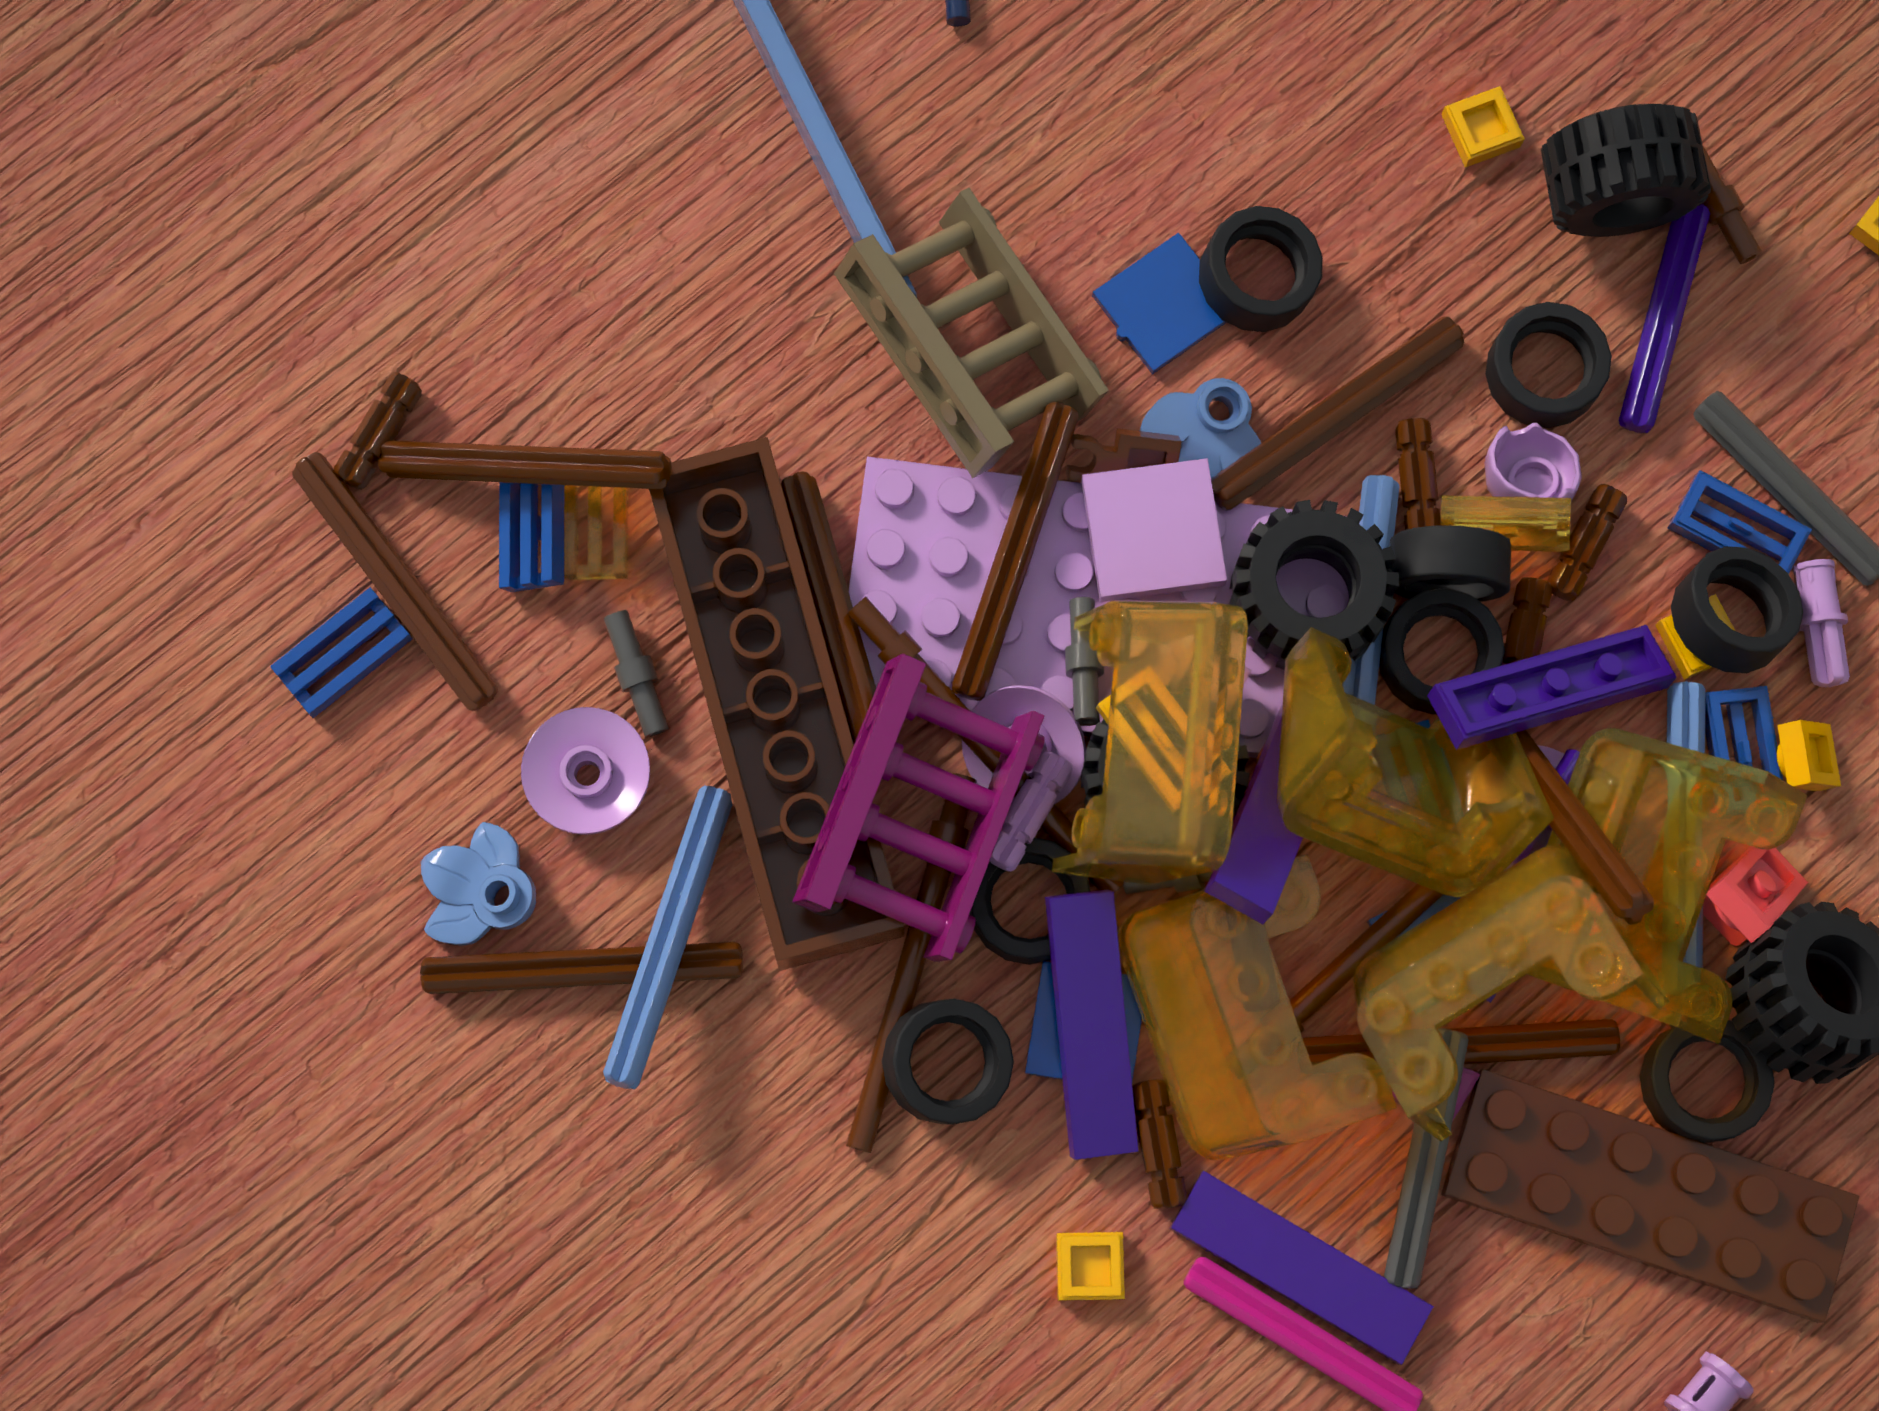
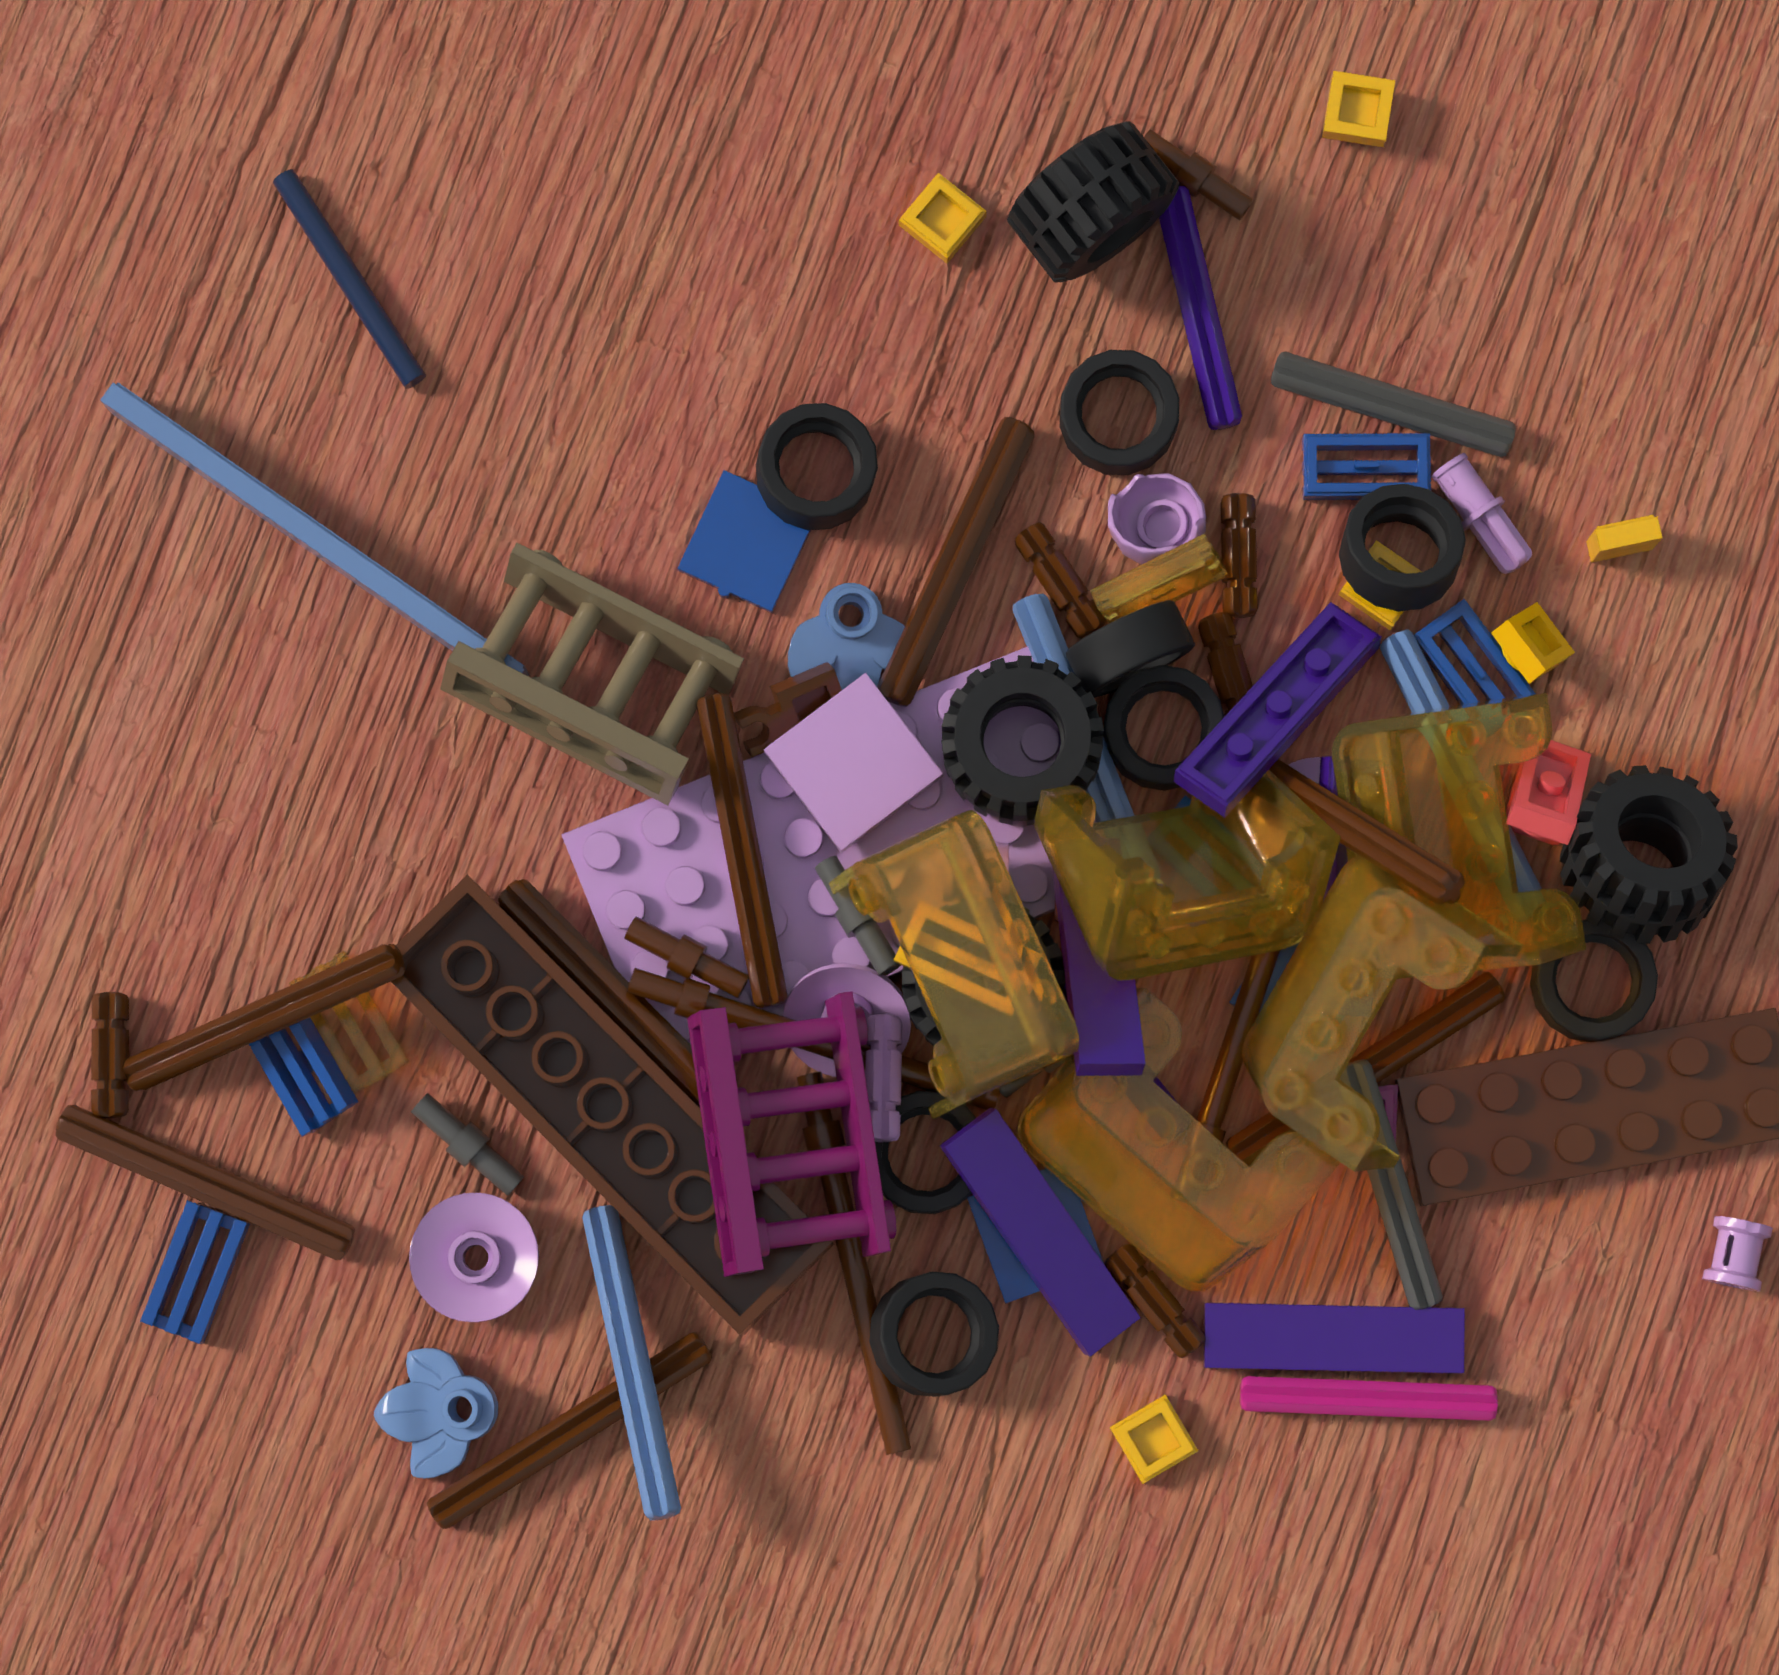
camera: 20 degrees left, 5 degrees up
(916, 614) = (686, 957): none -> reddish brown bar

